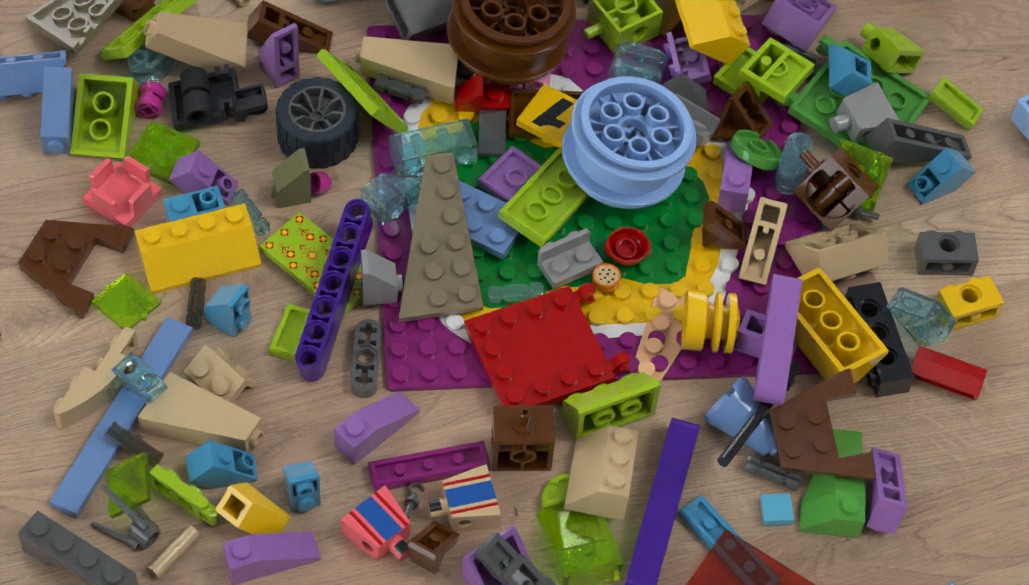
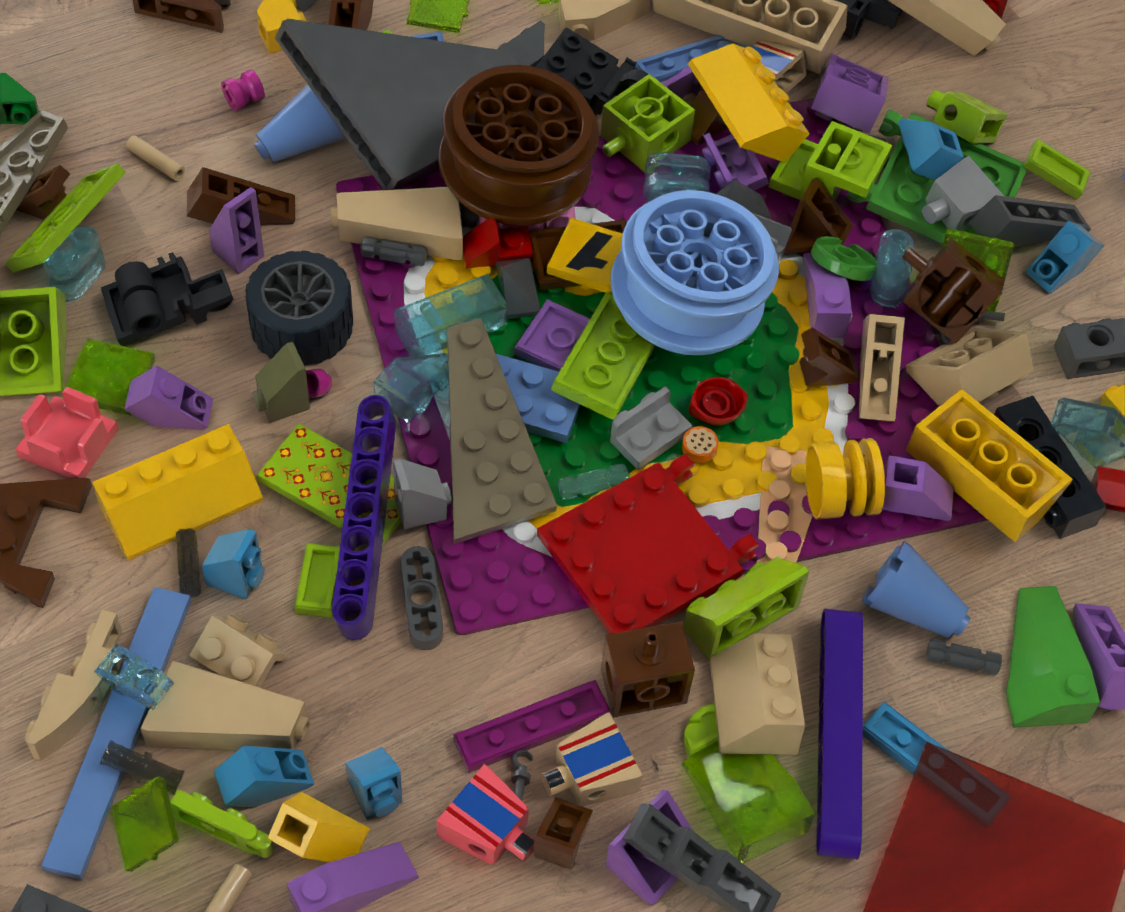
camera: 10 degrees left, 0 degrees up
(126, 302) = (97, 576): clear neon green piece -> none
(143, 529) = (174, 882): dark grey plant -> none
(150, 105) = (82, 312): dark pink wheel -> none
(193, 203) = (162, 435): dark azure slope -> none
(198, 40) = (130, 228): tan slope -> none
(260, 223) = (252, 446): clear light blue axle -> none
(362, 91) = (349, 260): lime tile -> none
(372, 426) = (450, 685): medium lavender slope -> none
(753, 422) = (951, 542): black bar -> none
(776, 509) = (980, 704): medium azure tile -> none
(777, 340) = (939, 489): medium lavender beam -> none
(806, 434) = (1001, 605): reddish brown wing -> none

